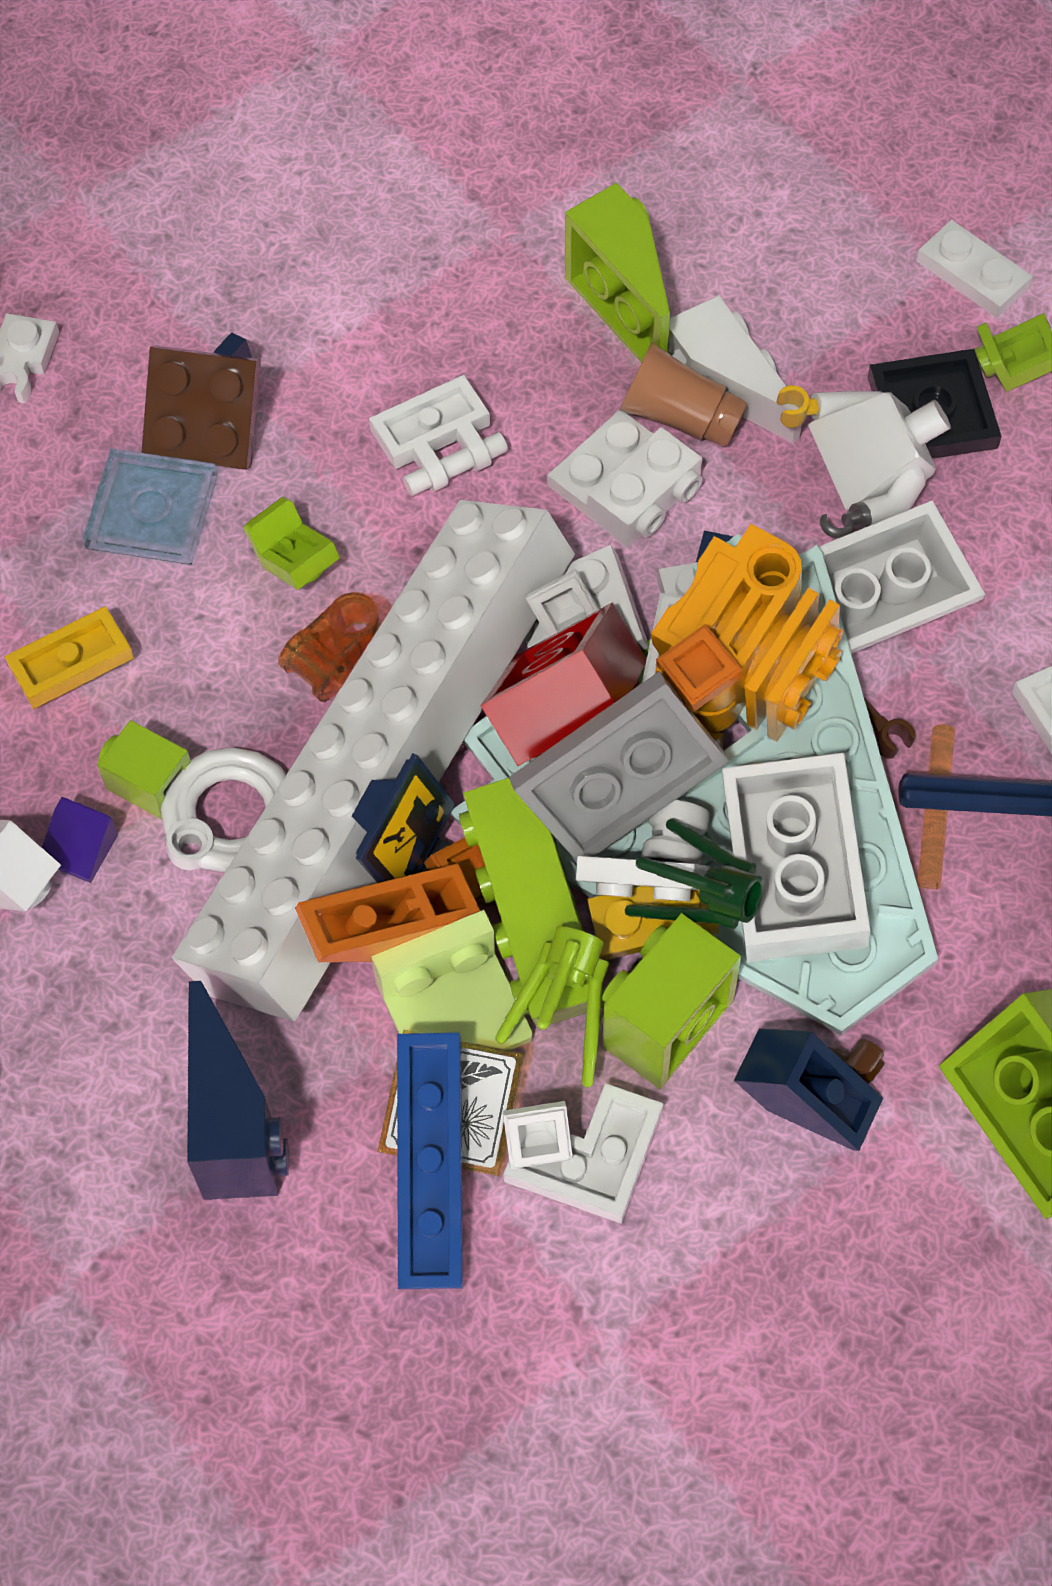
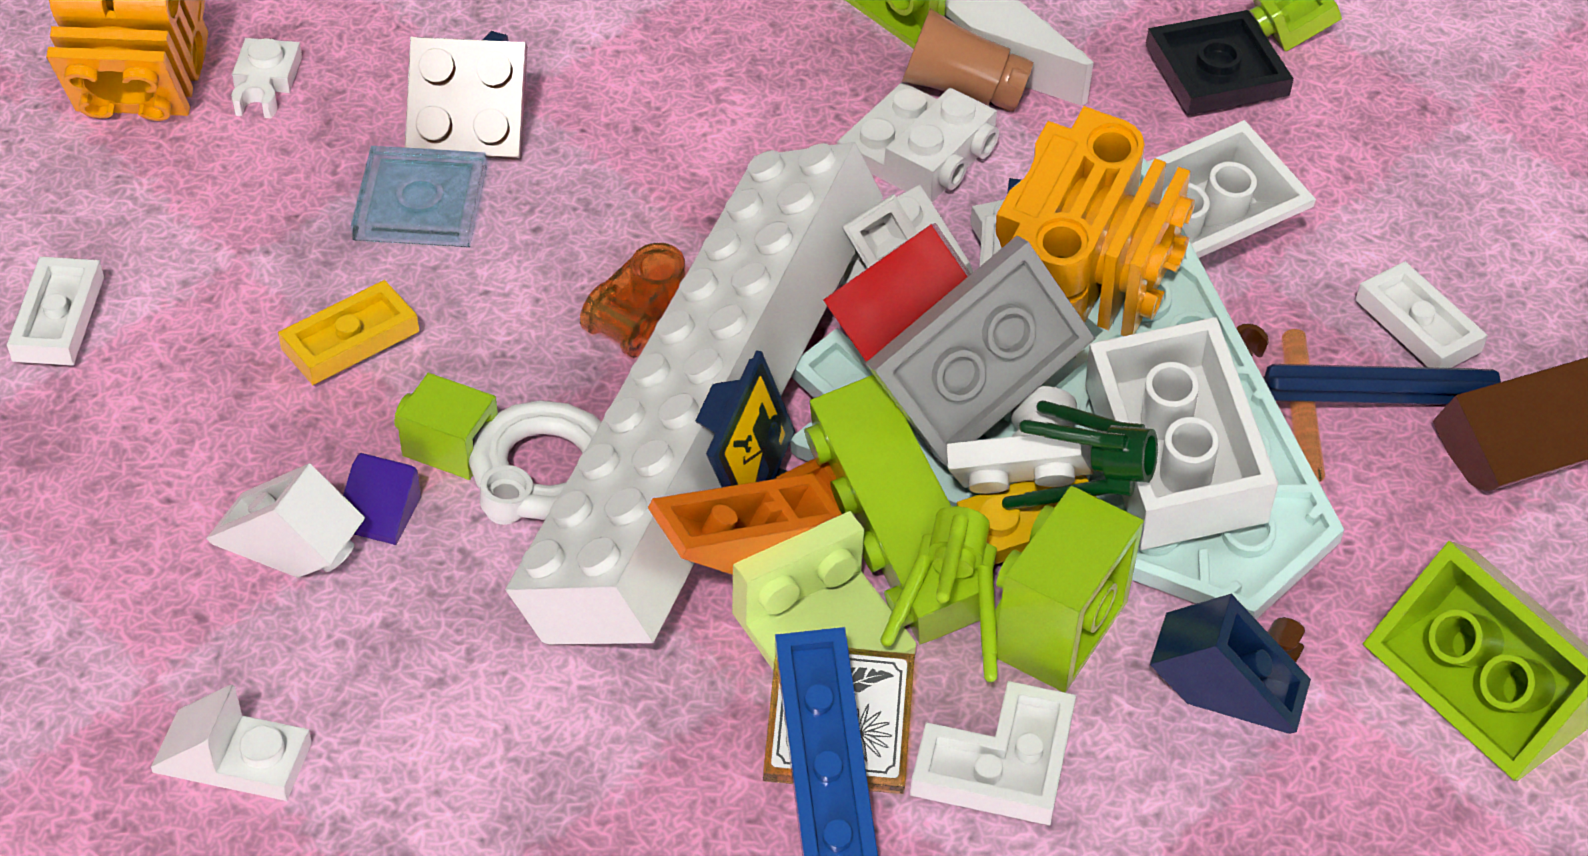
camera: 10 degrees left, 15 degrees down
(230, 1133) = (599, 735): dark blue slope -> none
(289, 546) = (574, 220): lime bracket -> none
(432, 422) = (711, 102): white plate -> none
(537, 1135) = (946, 728): white slope -> none
(699, 667) = (1058, 235): orange tile -> none
(869, 448) = (1164, 83): white torso -> none

